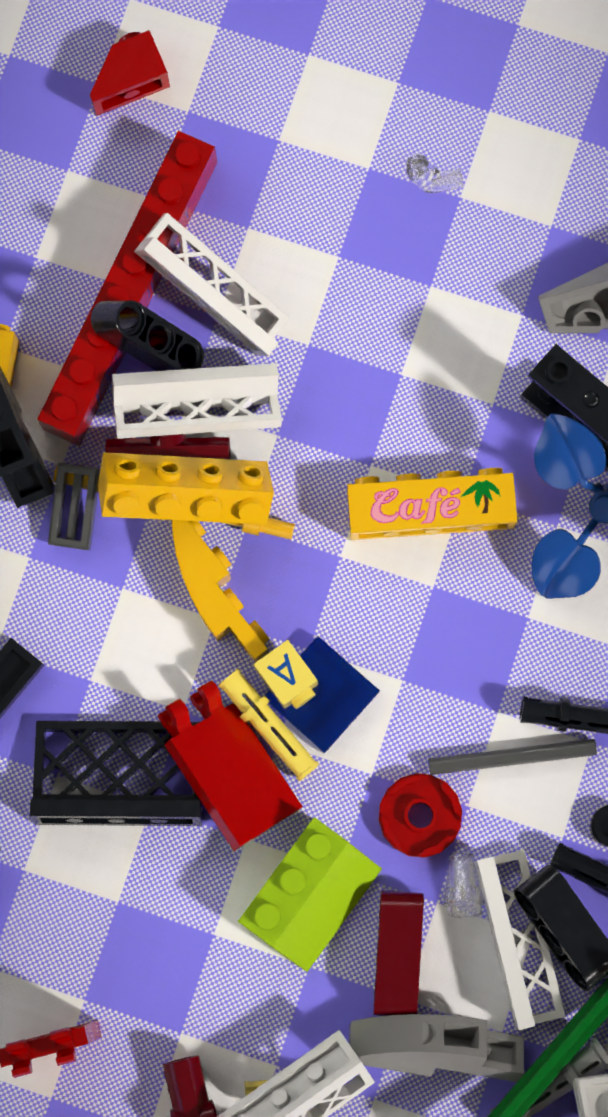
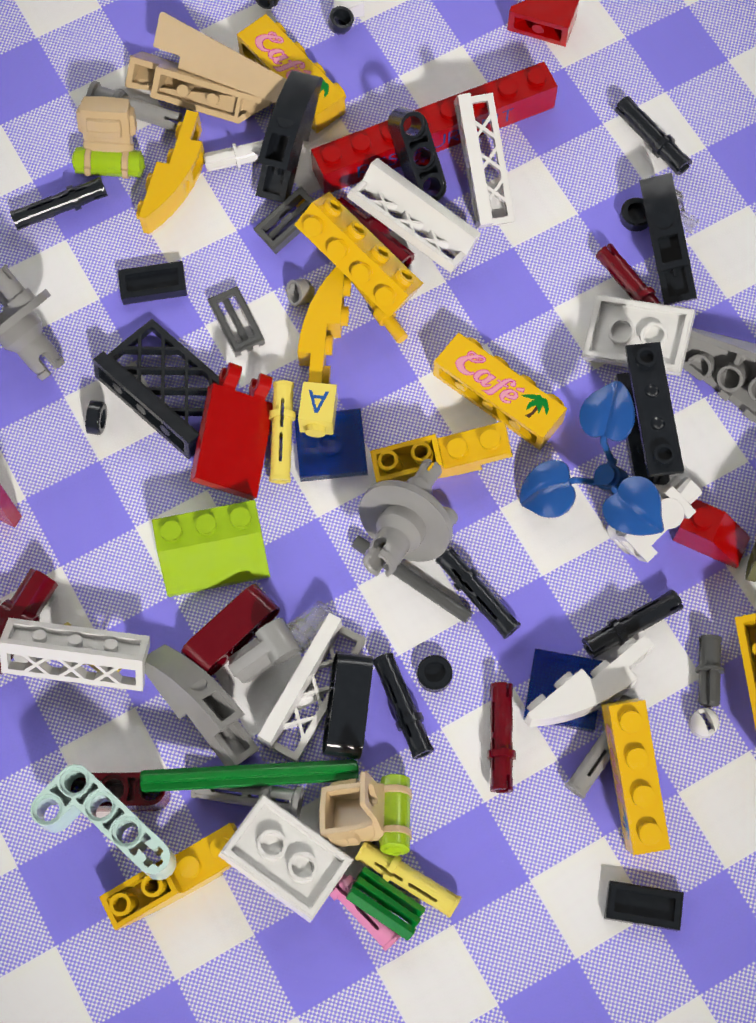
camera: 40 degrees right, 10 degrees down
(81, 866) = (96, 417): none -> black tile
(150, 664) = (247, 343): none -> dark grey tile
(153, 570) = (299, 292): none -> light grey hinge
(347, 116) = (661, 144): none -> black pin
(395, 211) = (633, 215): none -> black tile
(435, 616) = (454, 453): none -> yellow slope
(445, 815) = (322, 584): red tile -> none
(453, 216) = (668, 239): none -> black slope
(453, 941) = (270, 647): none -> light grey piece
(459, 290) = (625, 275): none -> dark red pin
(470, 715) = (405, 521): none -> light grey piece
(508, 338) = (631, 322): none -> white tile

